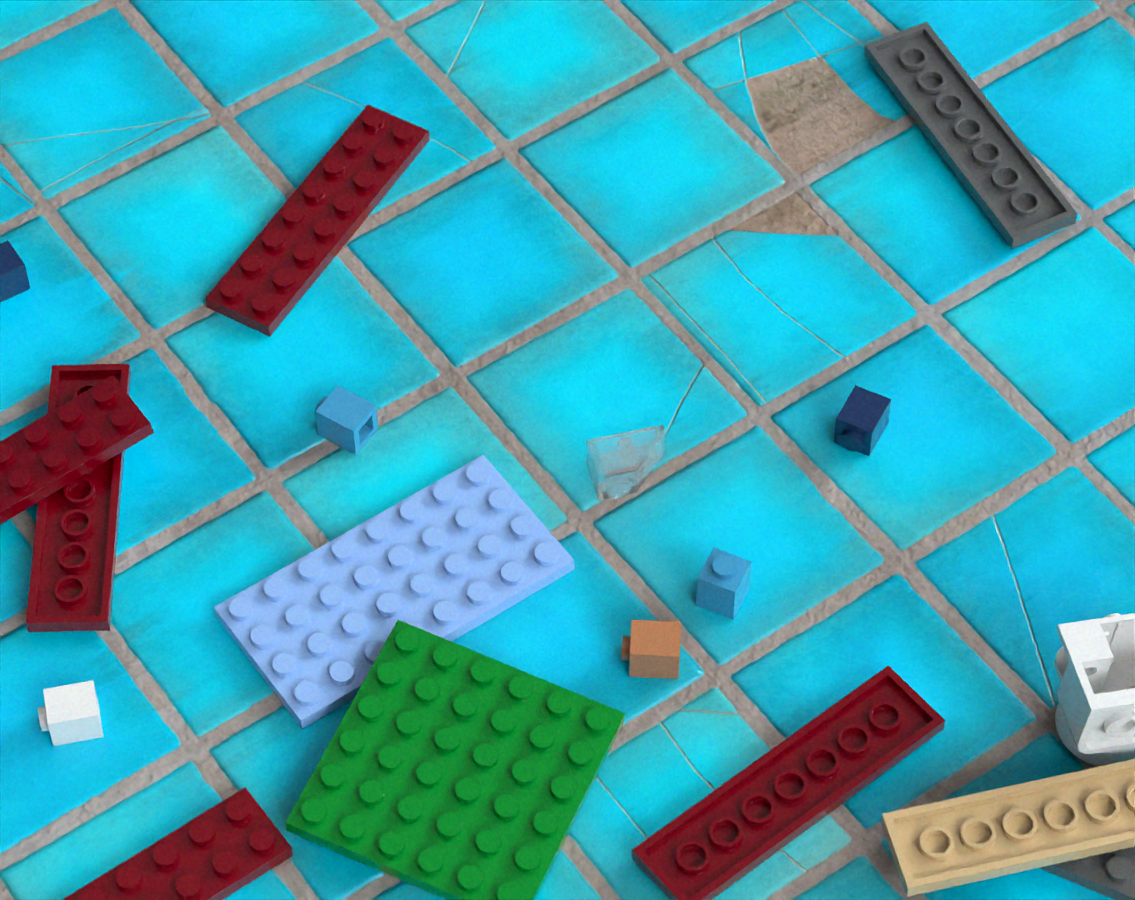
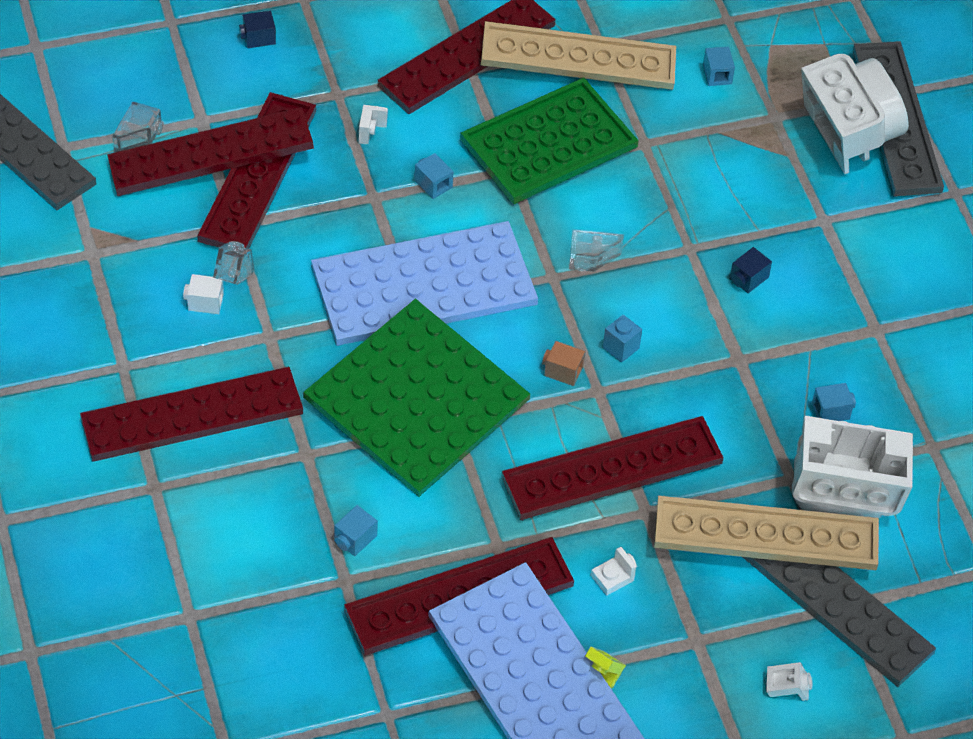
camera: 15 degrees right, 0 degrees up
(102, 652) = (234, 263): none -> clear slope
(219, 359) = (370, 119): none -> white bracket
(485, 175) = (578, 55): none -> tan plate
(491, 315) = (548, 140): none -> green plate
(690, 131) = (718, 66): none -> dark azure brick
(911, 136) = (853, 106): none -> white brick
(1063, 585) = (833, 402): none -> dark azure brick

